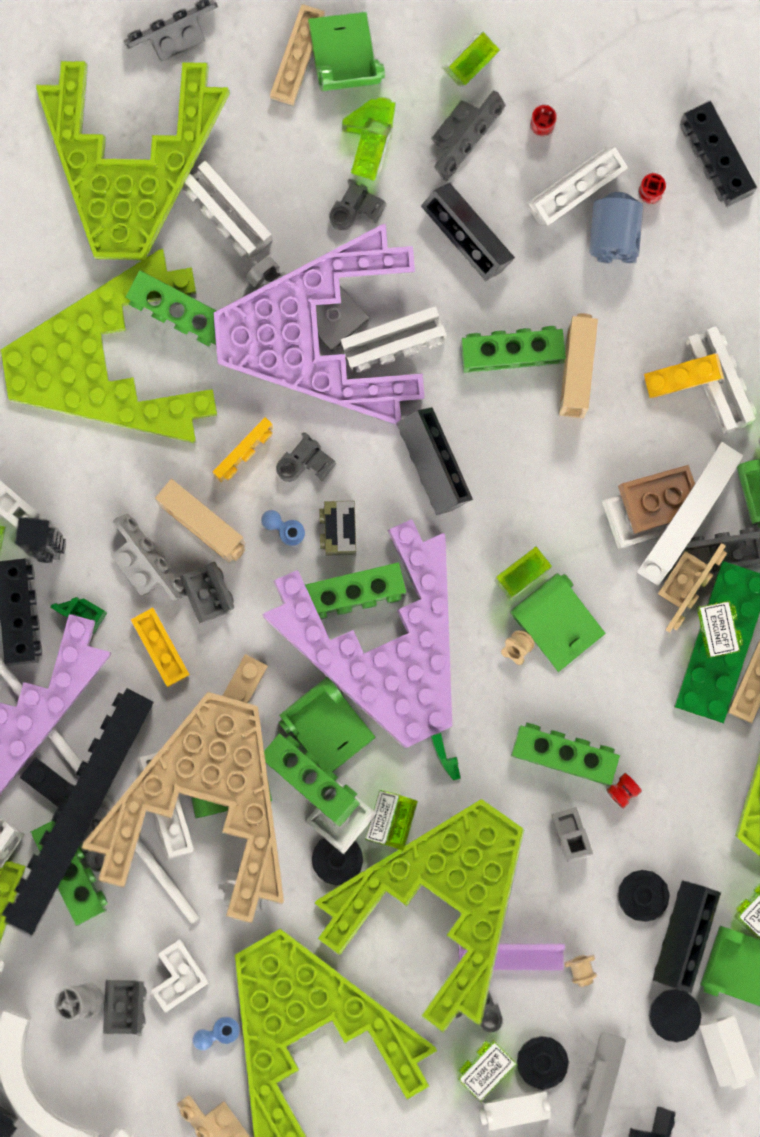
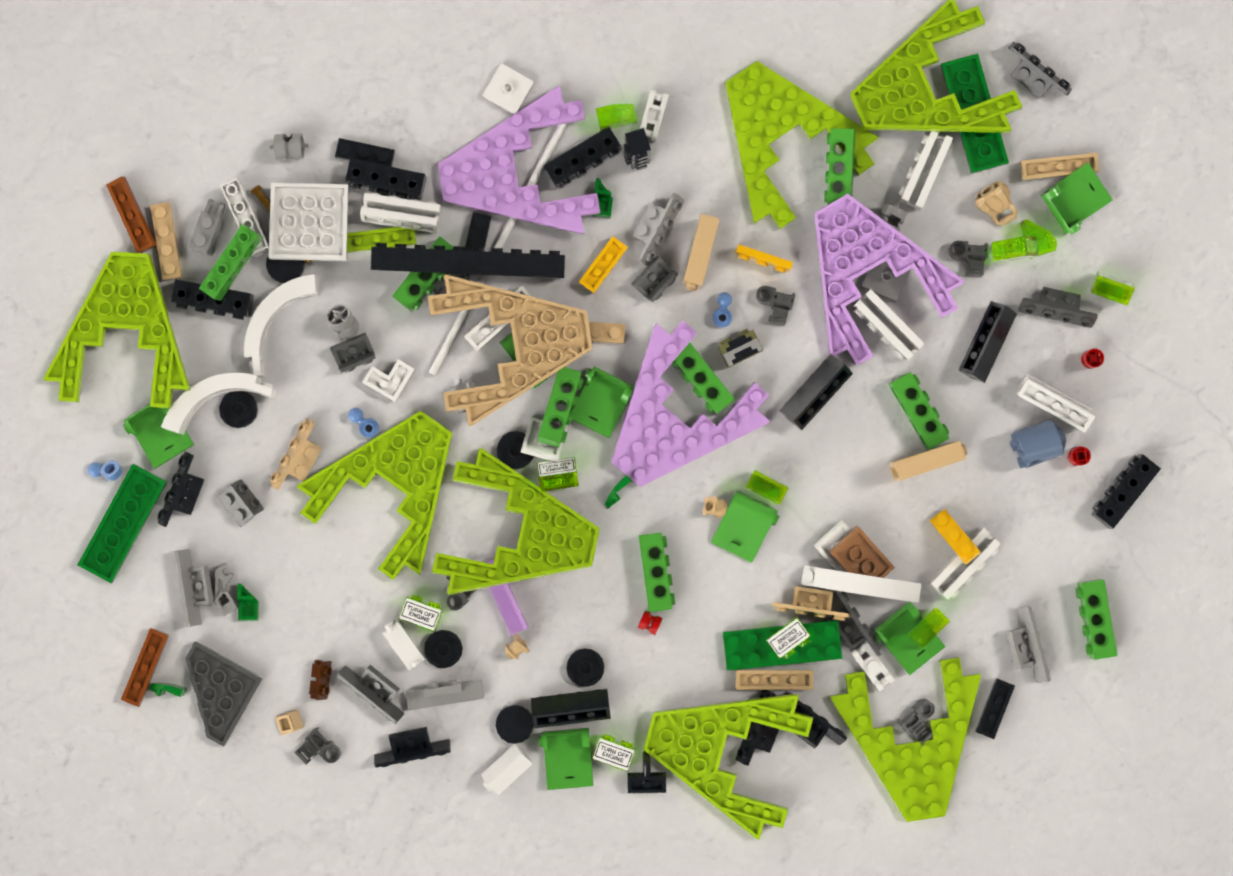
camera: 70 degrees right, 5 degrees up
(145, 113) = (968, 83): none -> green plate
(303, 146) = (996, 200): none -> tan piece
(572, 835) = (603, 600): light grey brick -> none

